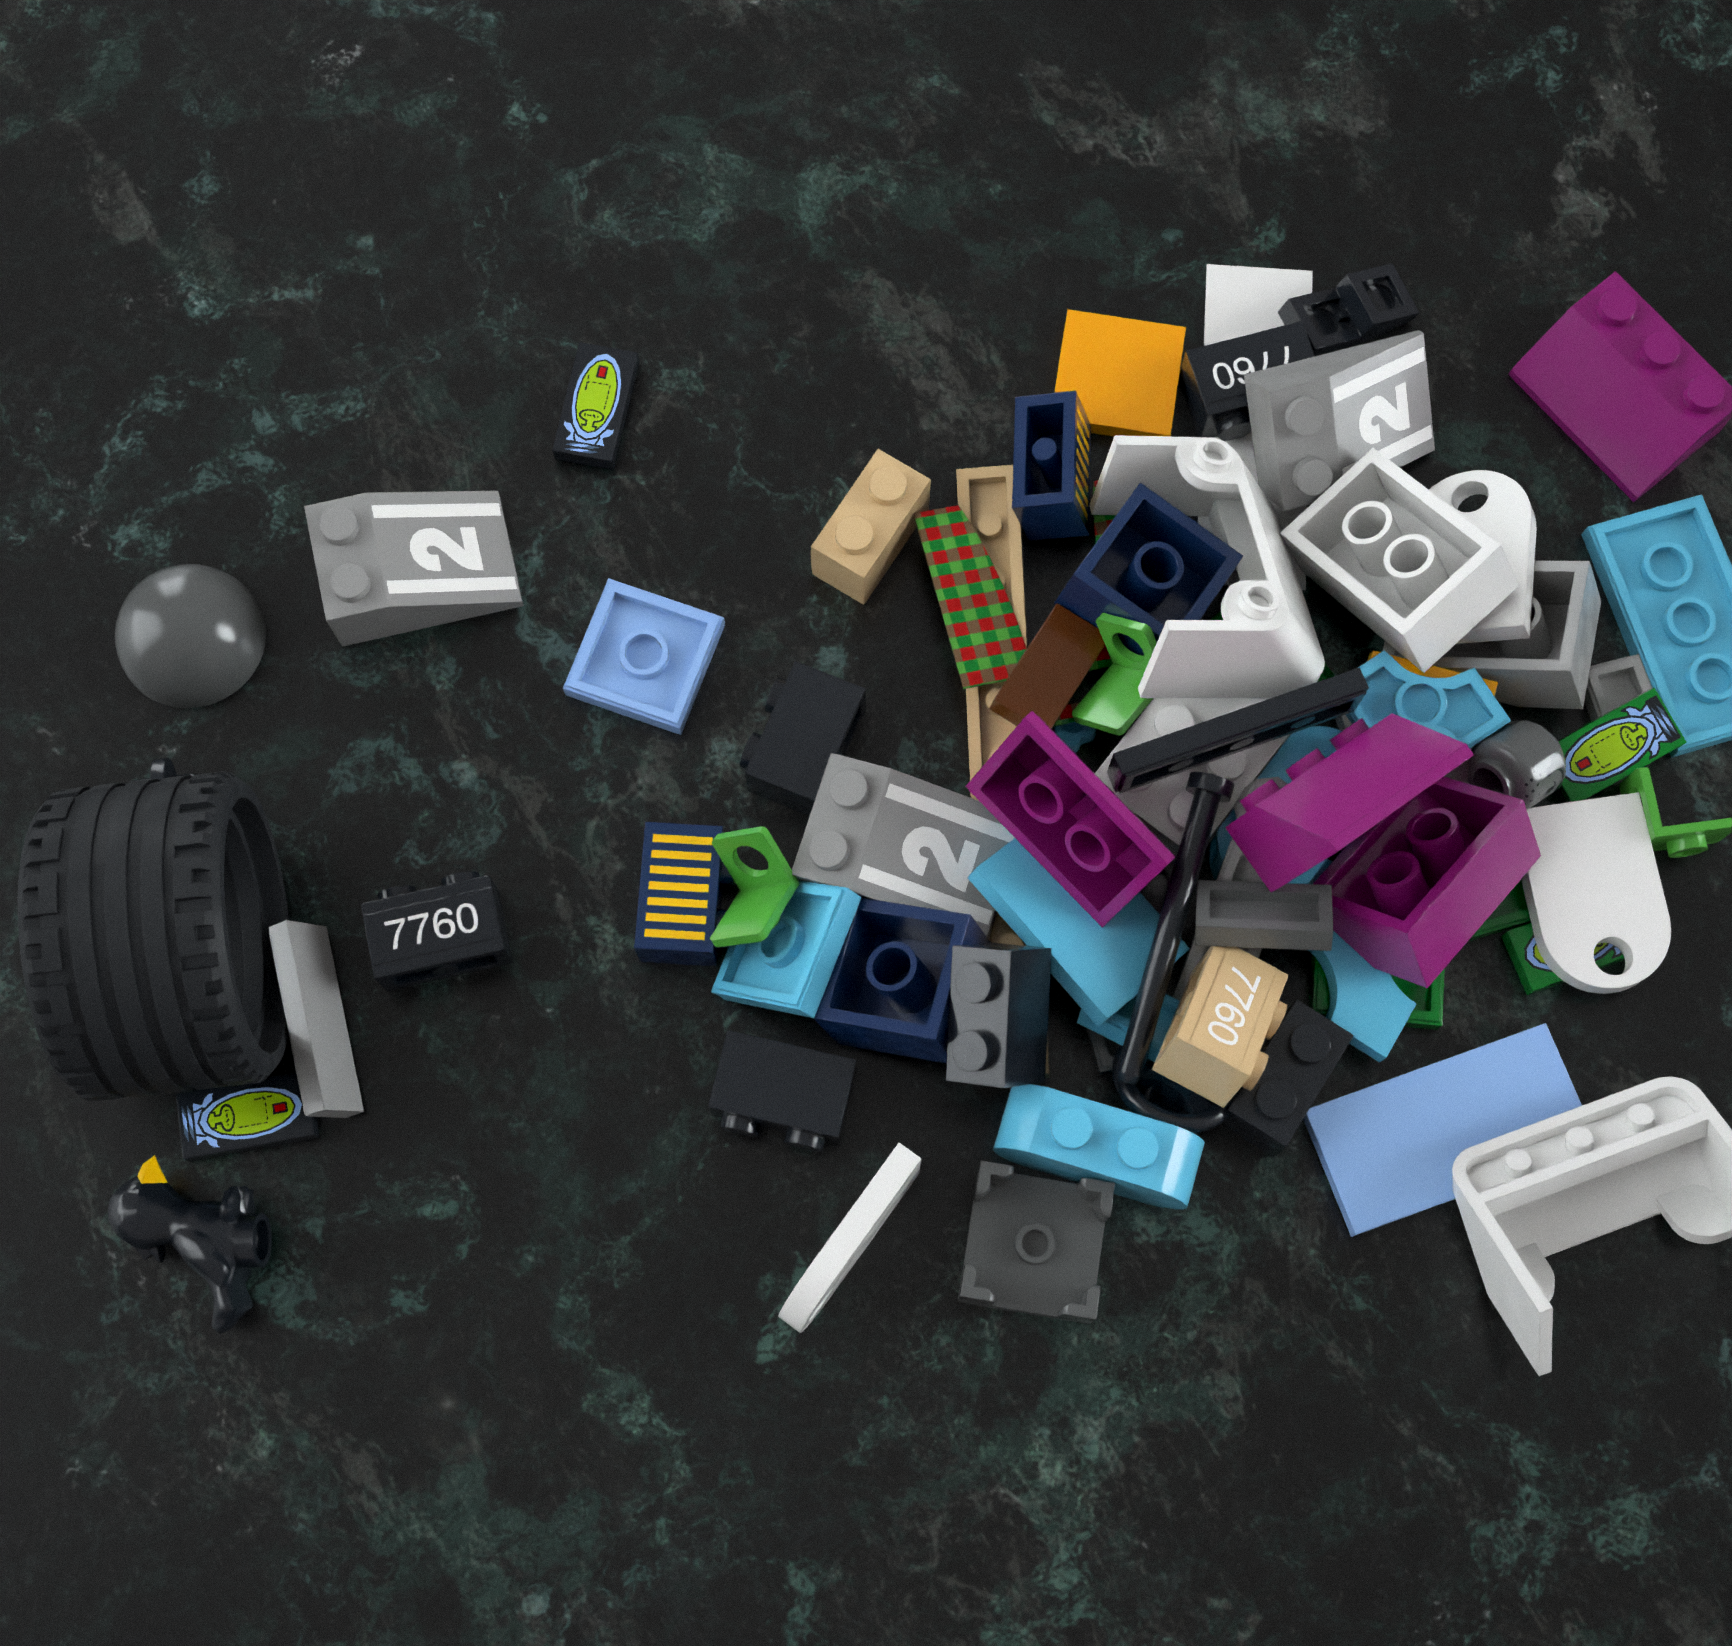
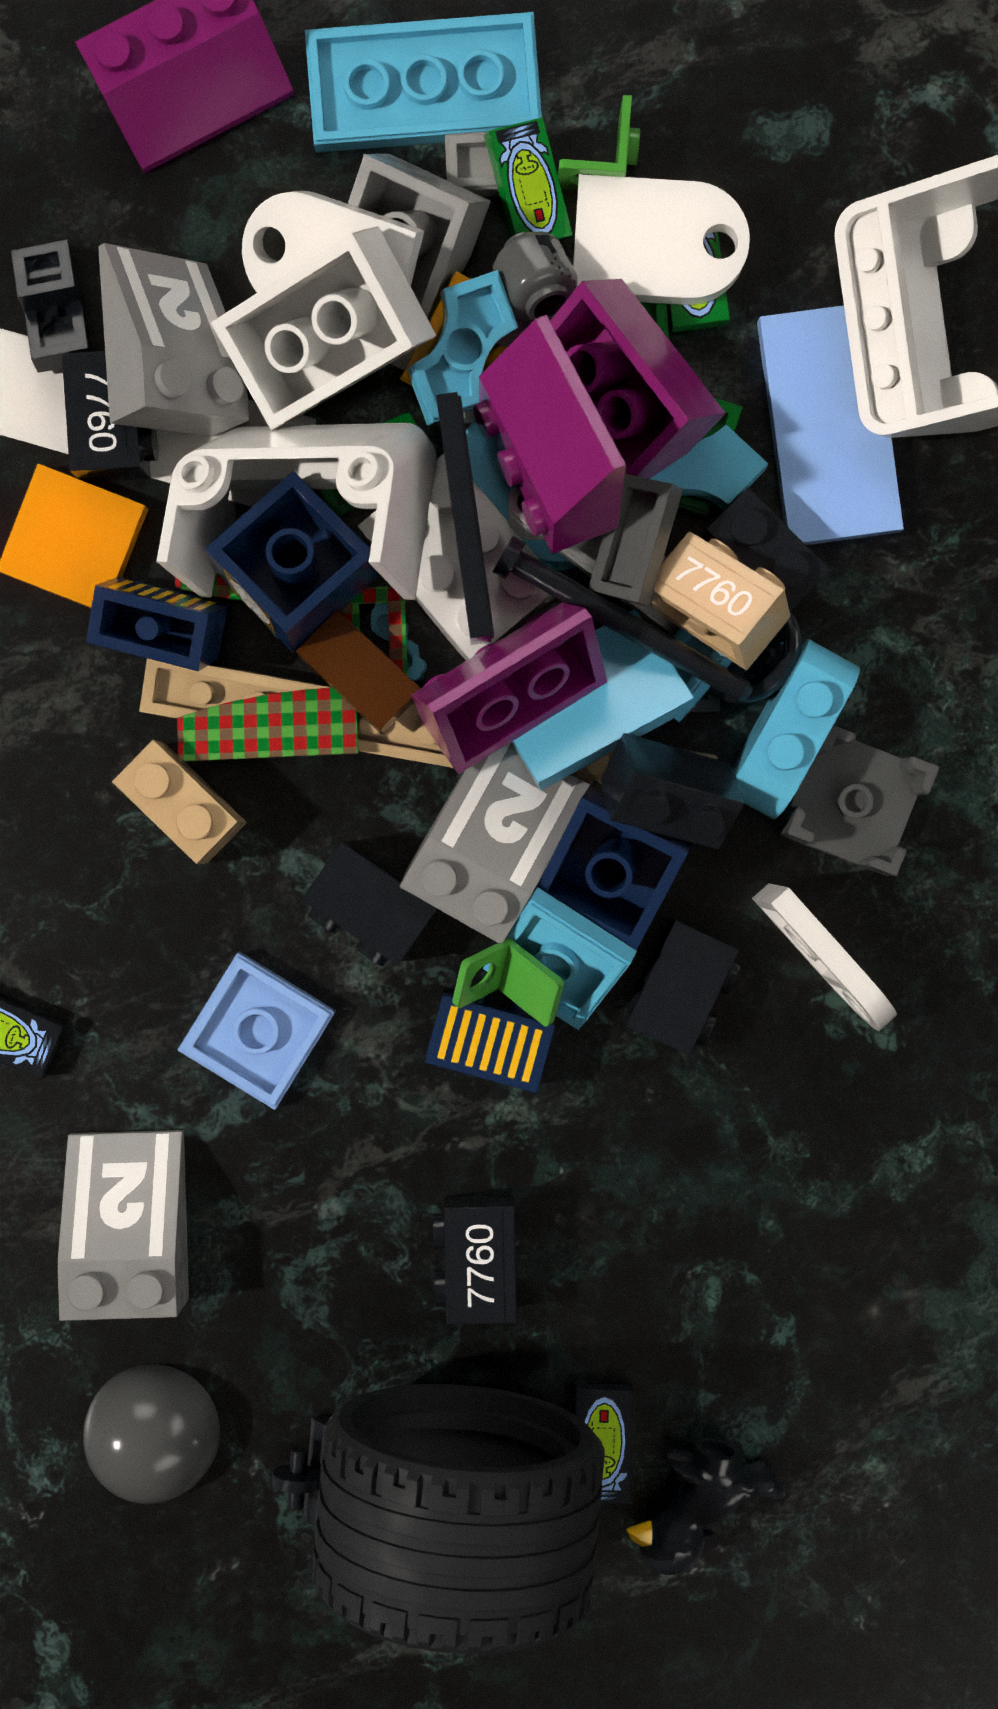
camera: 80 degrees left, 15 degrees up
(315, 1020) = (535, 1375): light grey tile -> none
(1115, 698) = (398, 622): bright green bracket -> none

